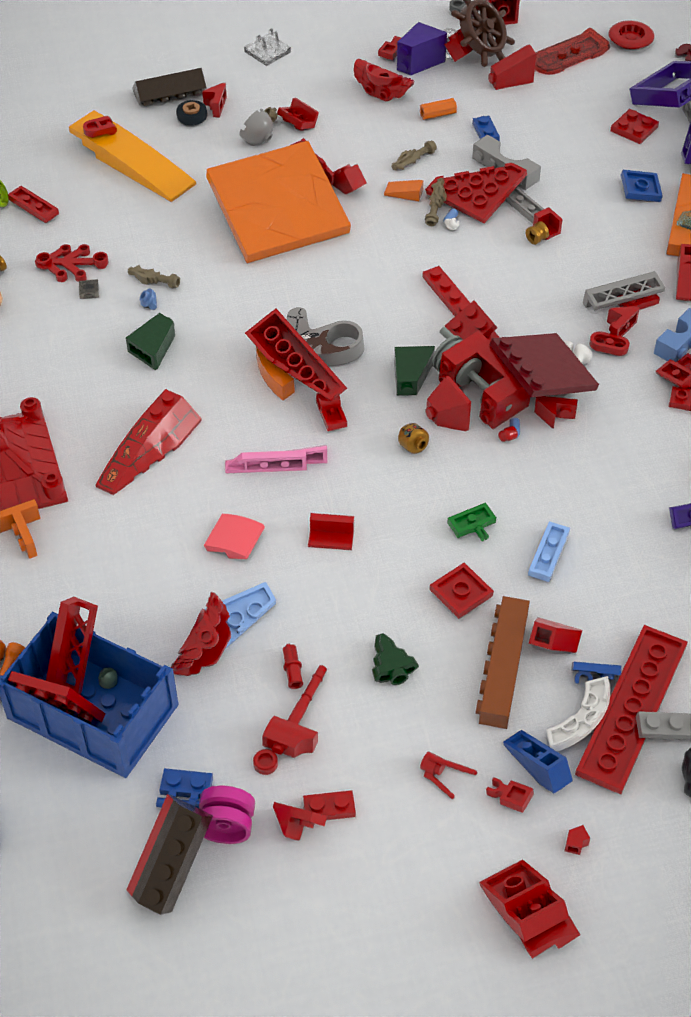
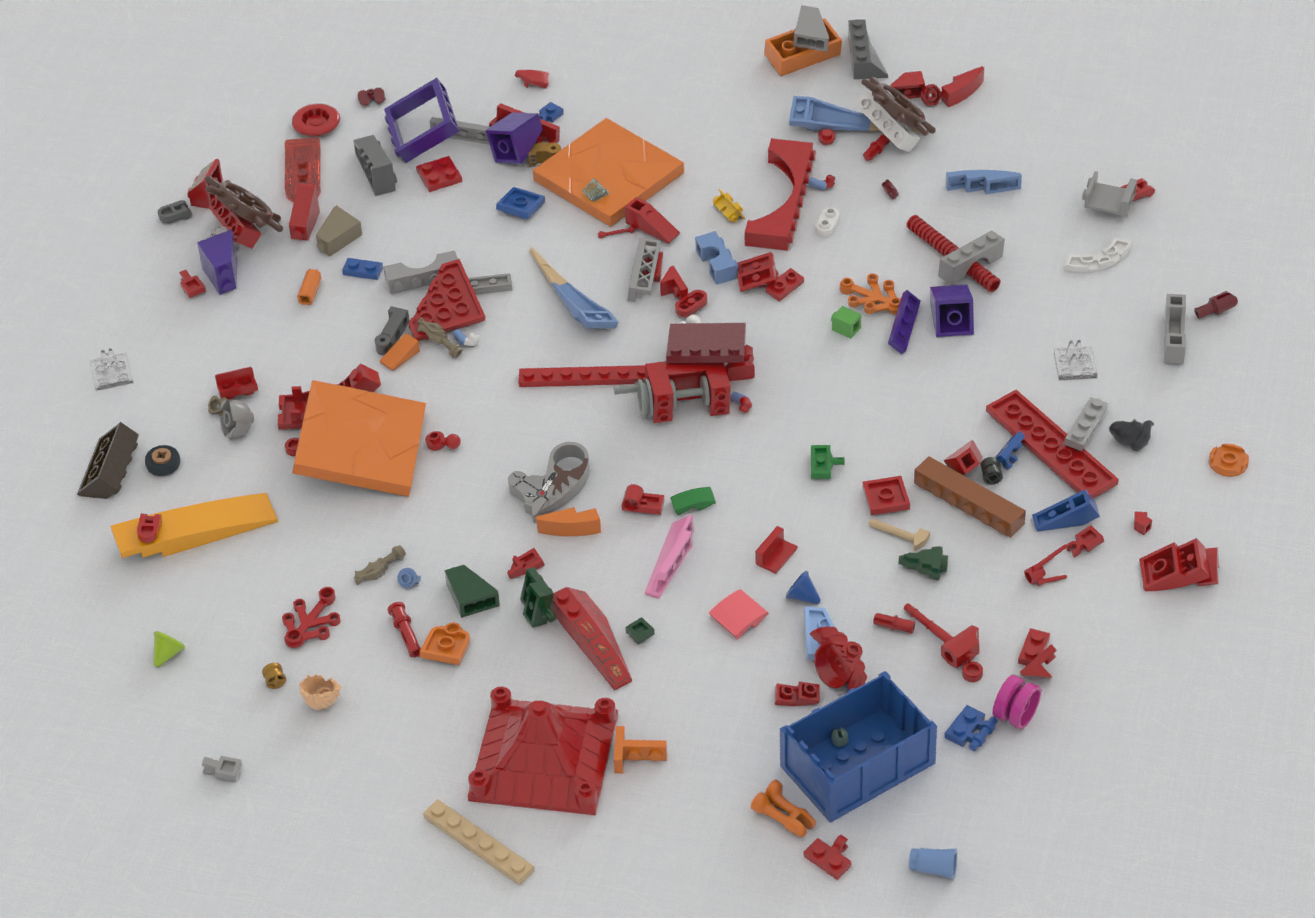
camera: 60 degrees left, 5 degrees down
(33, 204) = (203, 622): red plate -> none
(58, 696) = (864, 751): red plate -> none
(65, 639) = (814, 730): red fence -> none
(87, 352) = (446, 644): none -> orange plate
(88, 289) = (359, 617): clear smoke tile -> none
(94, 315) = (402, 623): none -> red pin
(155, 623) = (799, 695): none -> red slope
(158, 380) = (536, 599): none -> dark green plate
(168, 855) = (1036, 742): dark brown slope -> none
(171, 473) = (640, 630): none -> dark green plate
(210, 365) = (525, 561): none -> red slope
(215, 98) = (159, 432): red slope -> none
(290, 572) = (803, 590): none -> blue hat
(292, 354) = (578, 492): red wedge -> none
(319, 252) = (436, 441): none -> red plate
(359, 445) = (698, 497): none -> green slope
(381, 82) = (245, 306): red piece -> none
(411, 156) = (358, 331): dark tan piece -> none
(411, 368) = (632, 433): dark green slope -> none
(413, 438) = (711, 461): pearl gold head -> none
(422, 642) = (919, 539): none -> tan piece
(424, 172) = (393, 329): none -> dark grey leg
(449, 406) = (698, 422): red slope -> none
(470, 321) = (612, 373): red plate -> none
(511, 97) = (337, 231): none -> dark tan slope
(537, 233) = (529, 290): pearl gold wheel -> none
(543, 274) = (581, 307): none -> medium blue plate
(549, 551) = (881, 430): light blue plate -> none
(551, 220) = (522, 279): red panel -> none
(555, 666) = (991, 470): none -> pearl dark grey wheel
(588, 717) = (1047, 471): white tile -> none
(605, 84) = (375, 165): none -> dark grey wedge
(650, 252) = (602, 234): none -> red hinge
(675, 464) = (846, 322): none -> bright green brick

